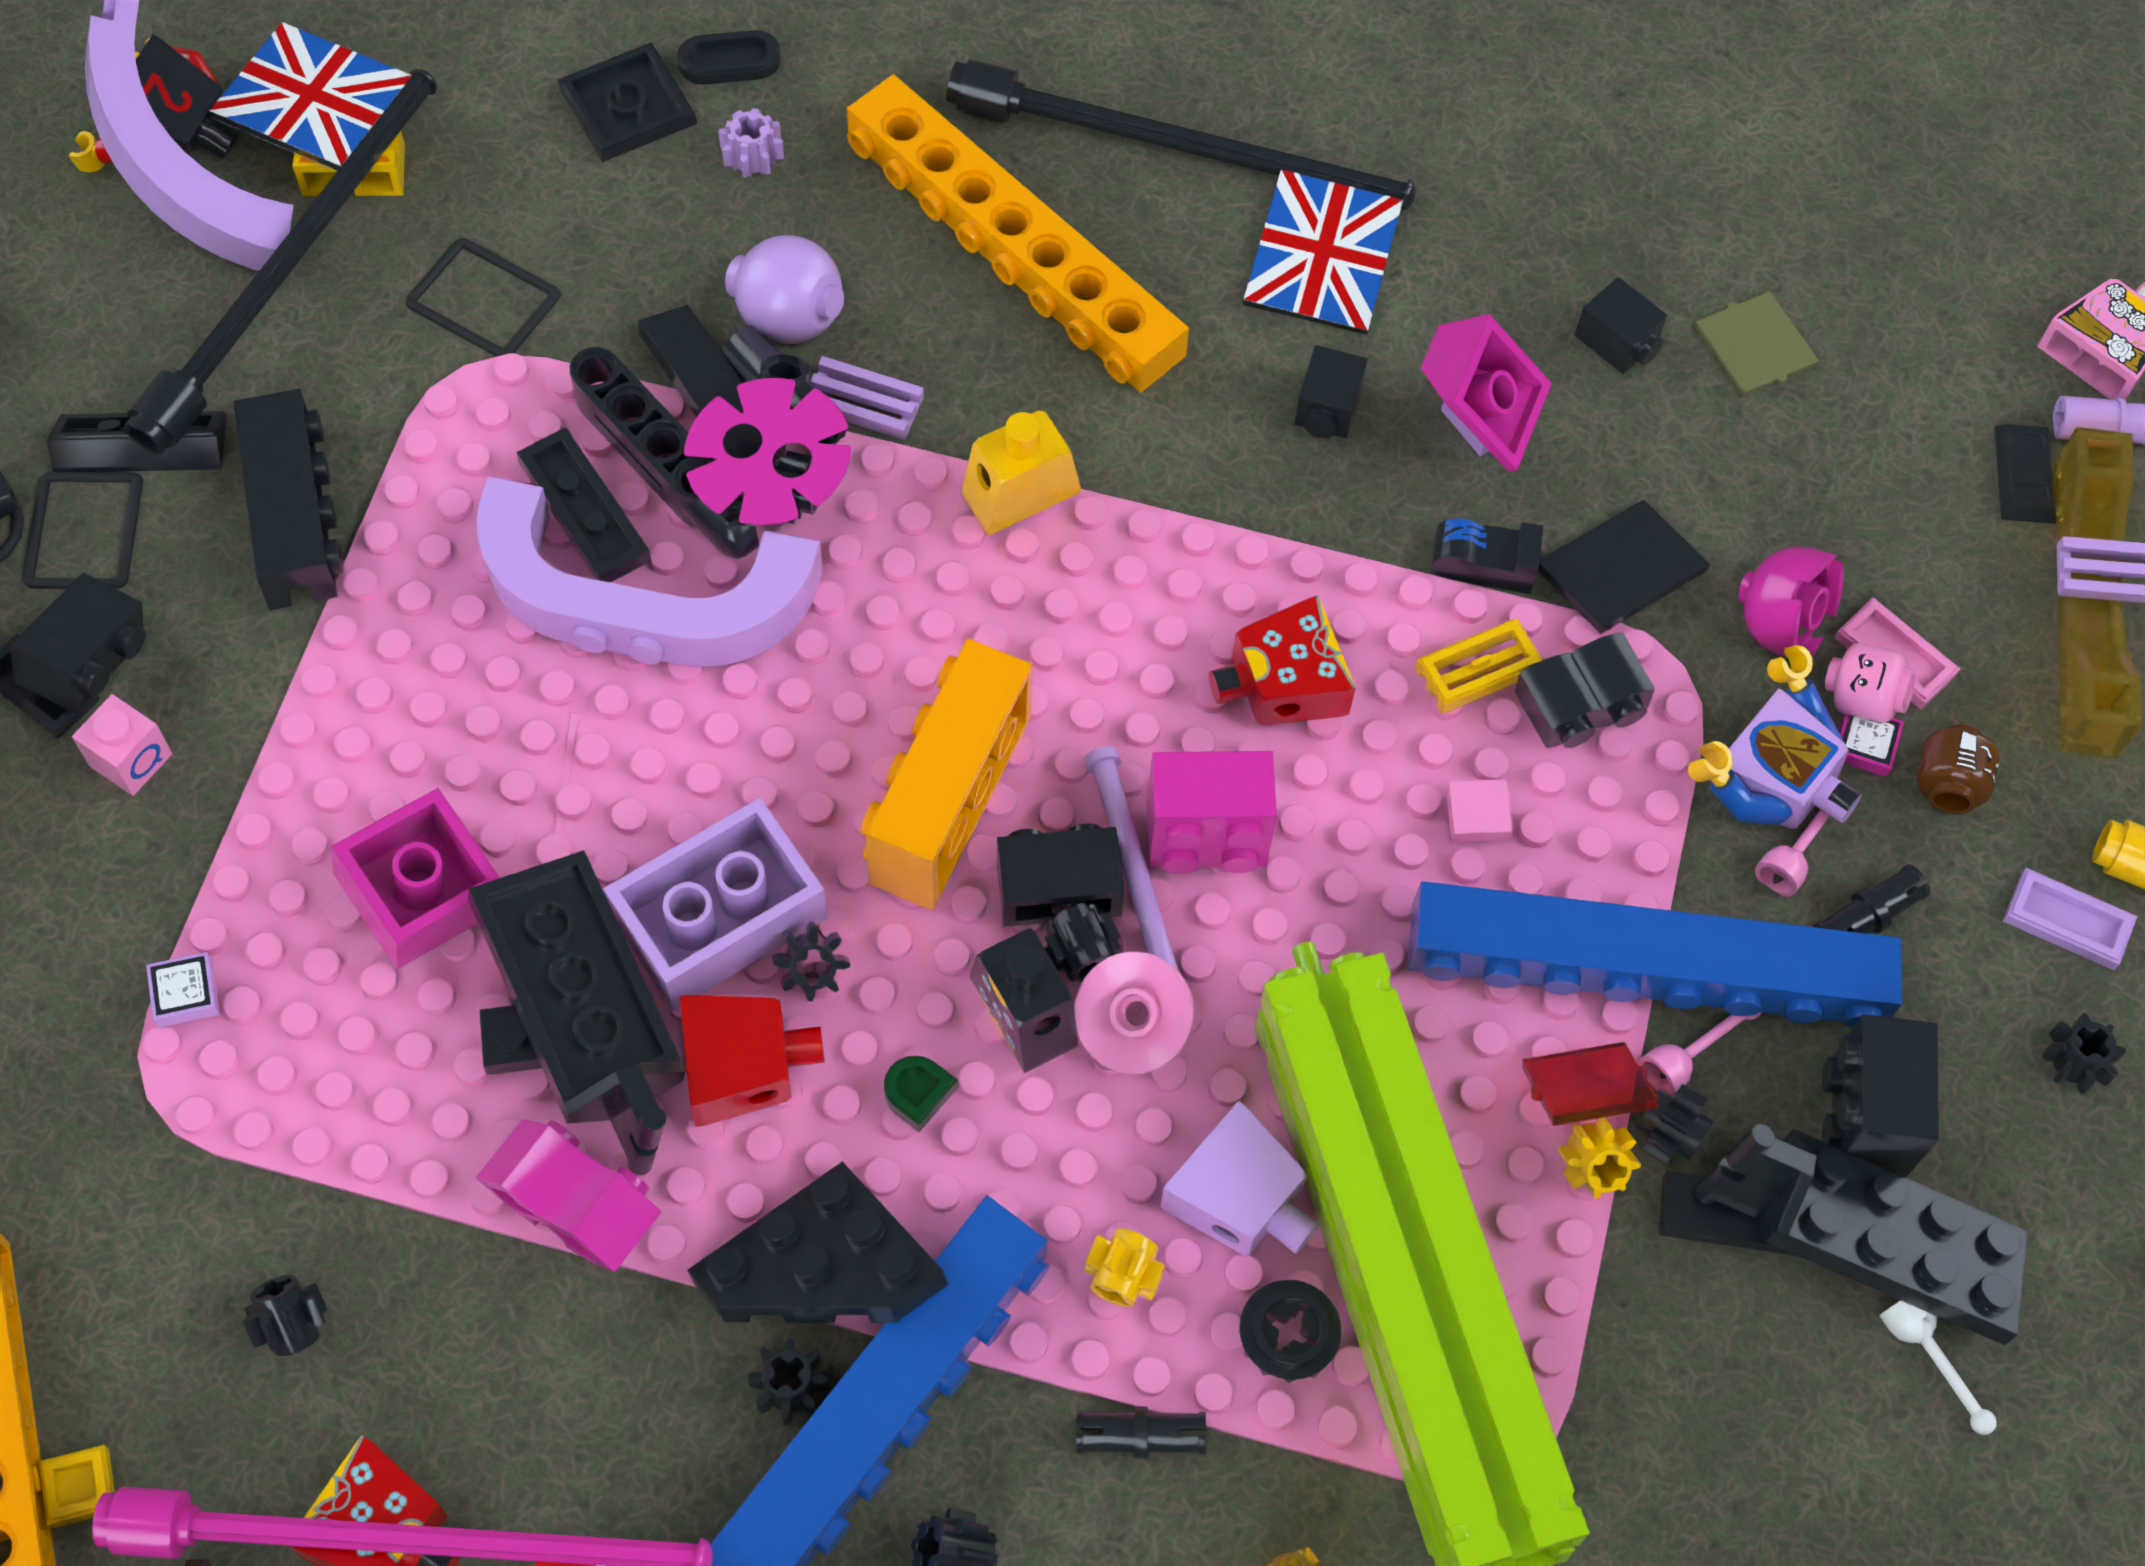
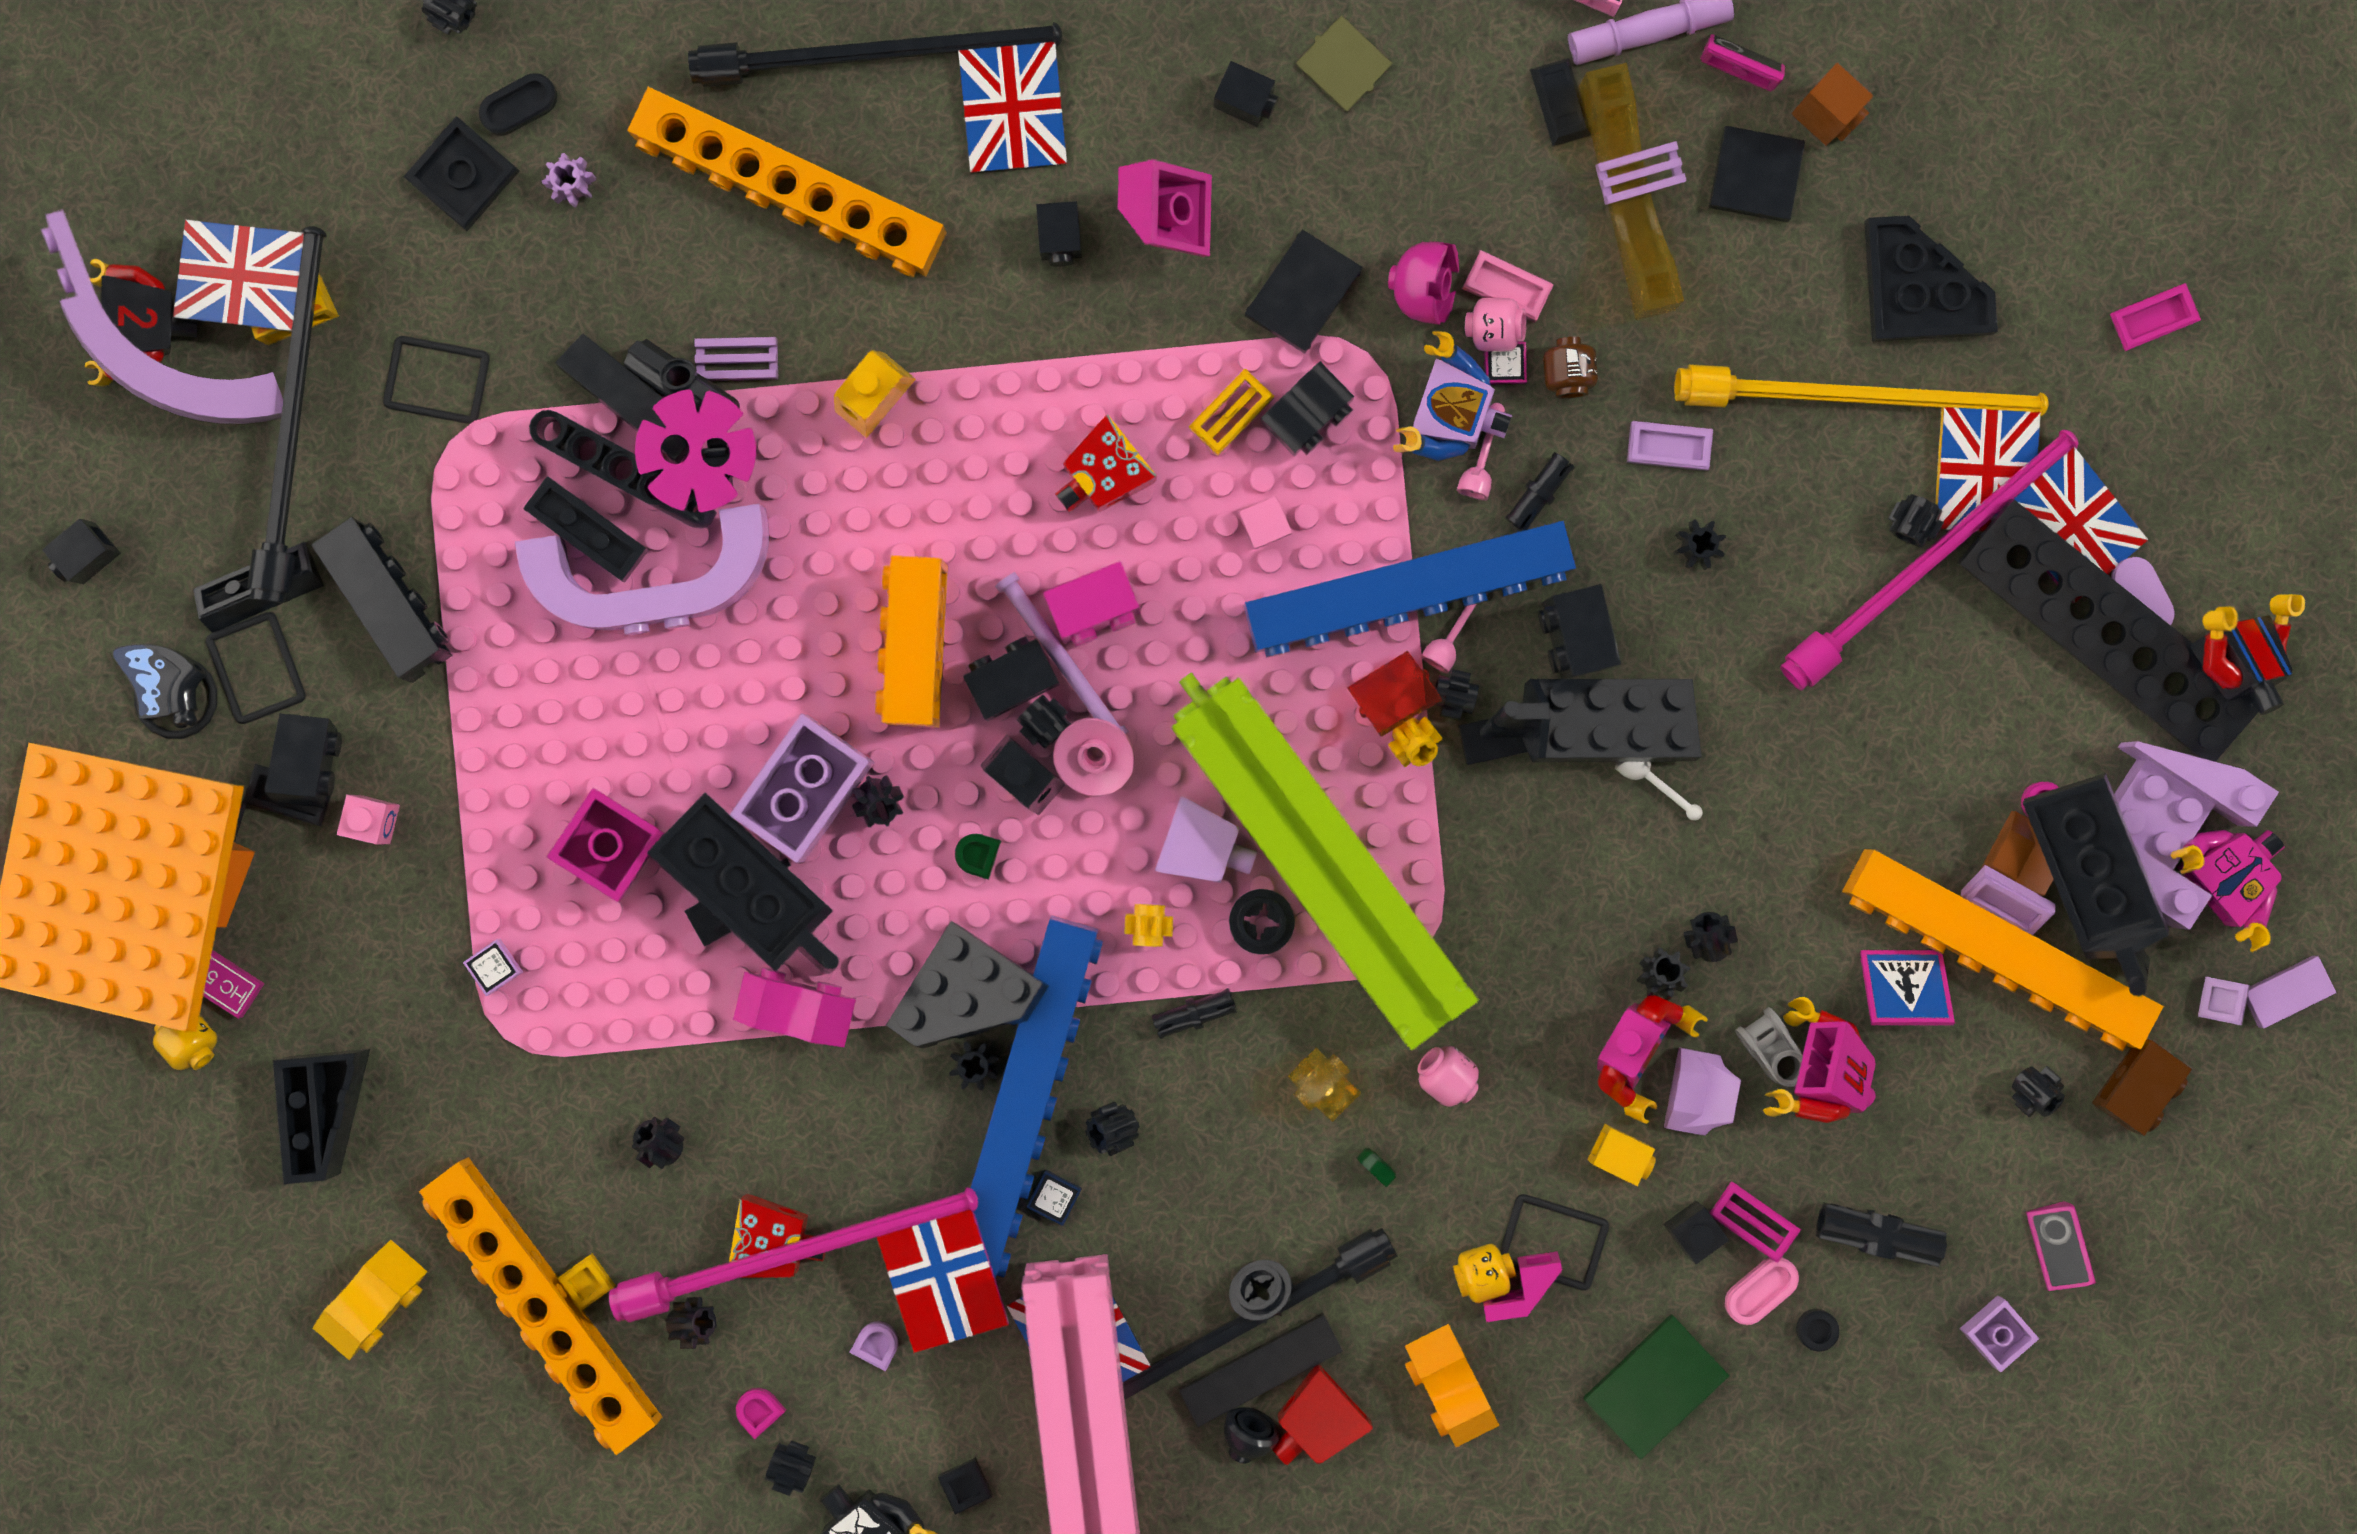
camera: 20 degrees left, 25 degrees up
(741, 1054) = (860, 878): red torso -> none
(786, 289) = (647, 298): lavender brick -> none
(1488, 554) = (1209, 320): black leg -> none

